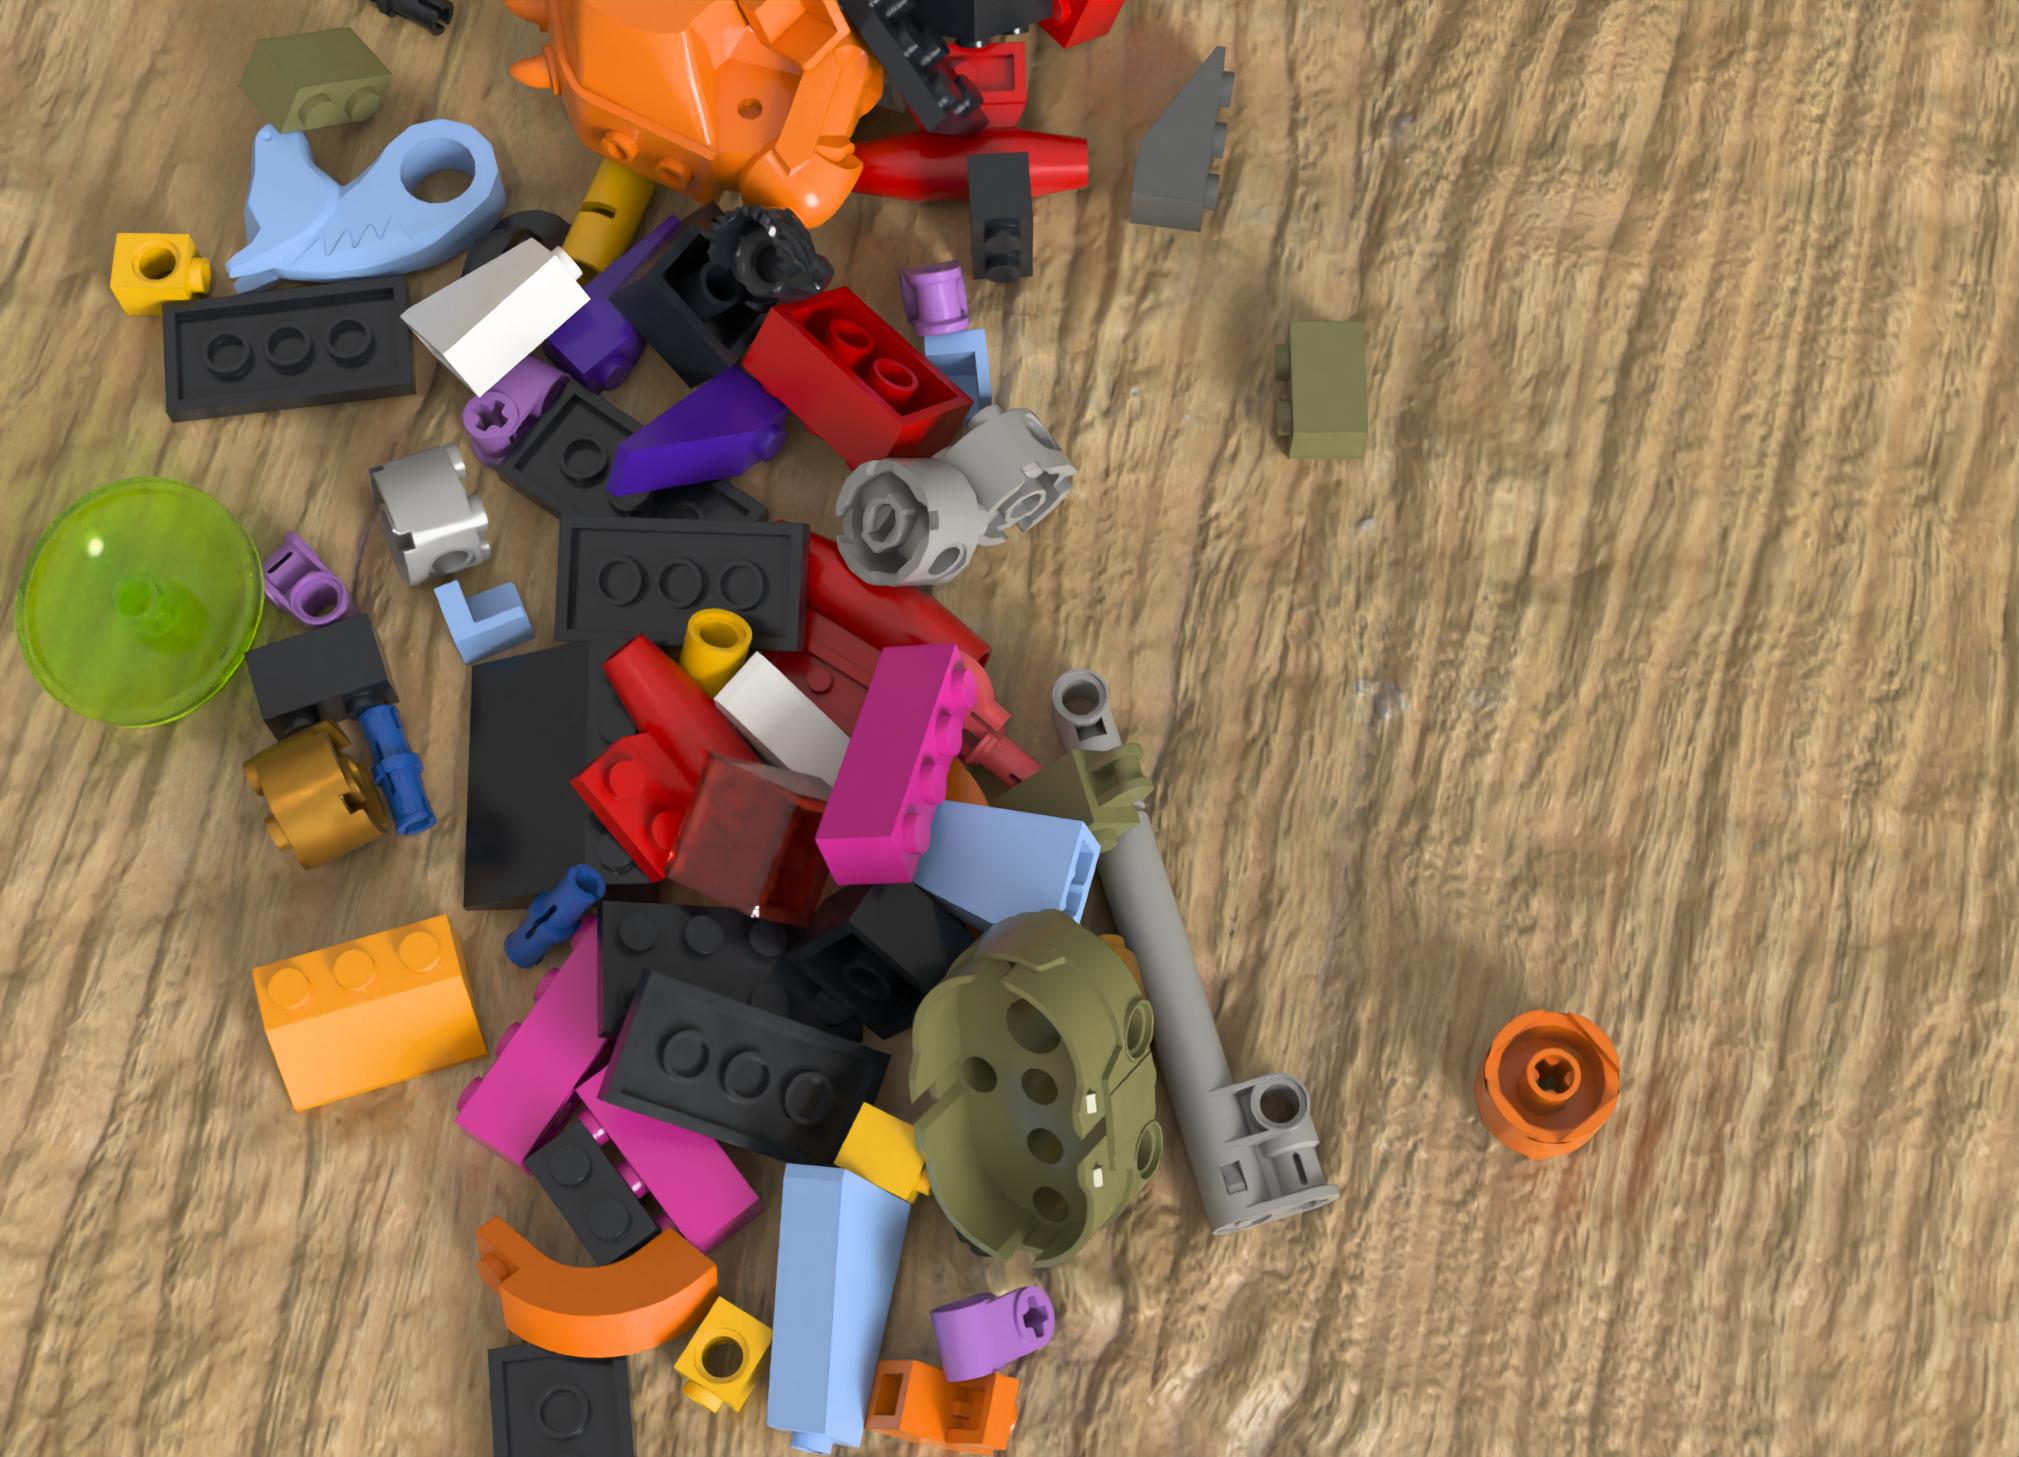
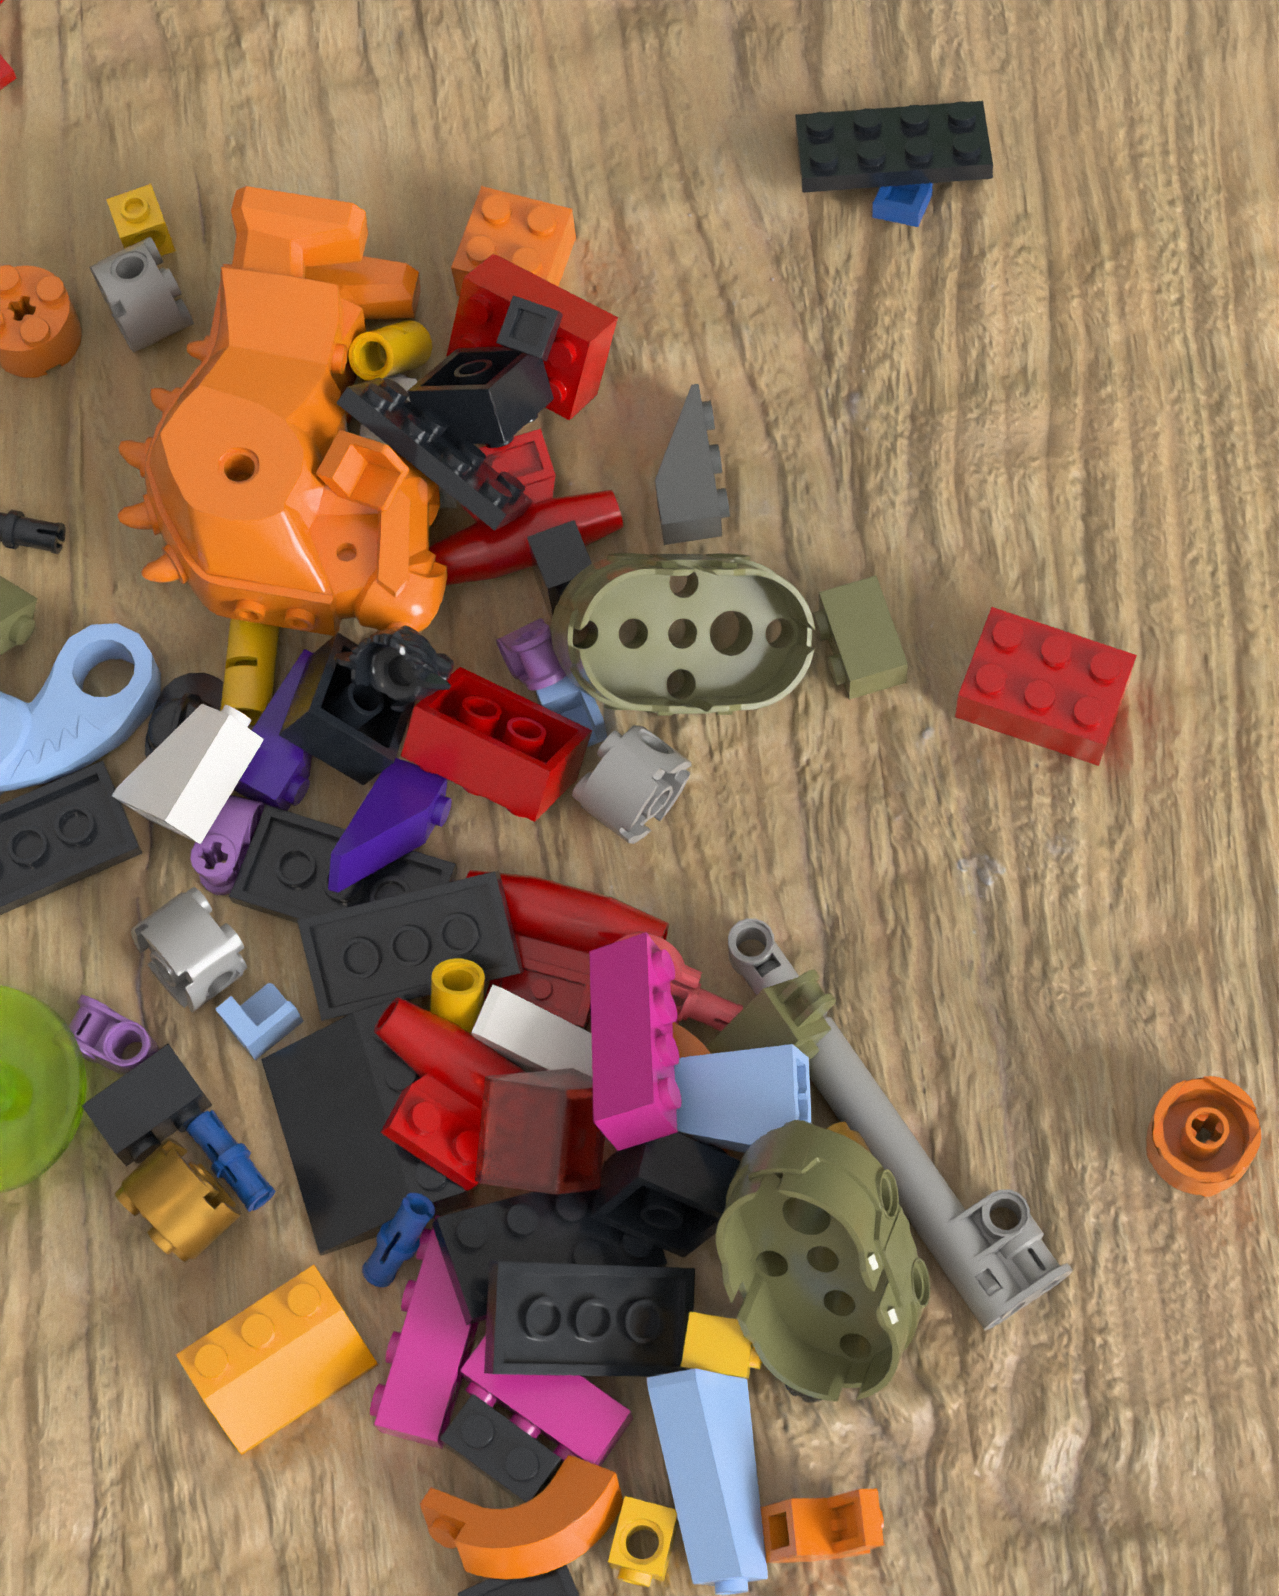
camera: 10 degrees left, 0 degrees up
(908, 521) = (575, 844): light grey brick -> none
(990, 1331) = (842, 1458): medium lavender piece -> none
(1046, 349) = (636, 673): none -> olive piece
(1523, 506) = (1045, 686): none -> red brick

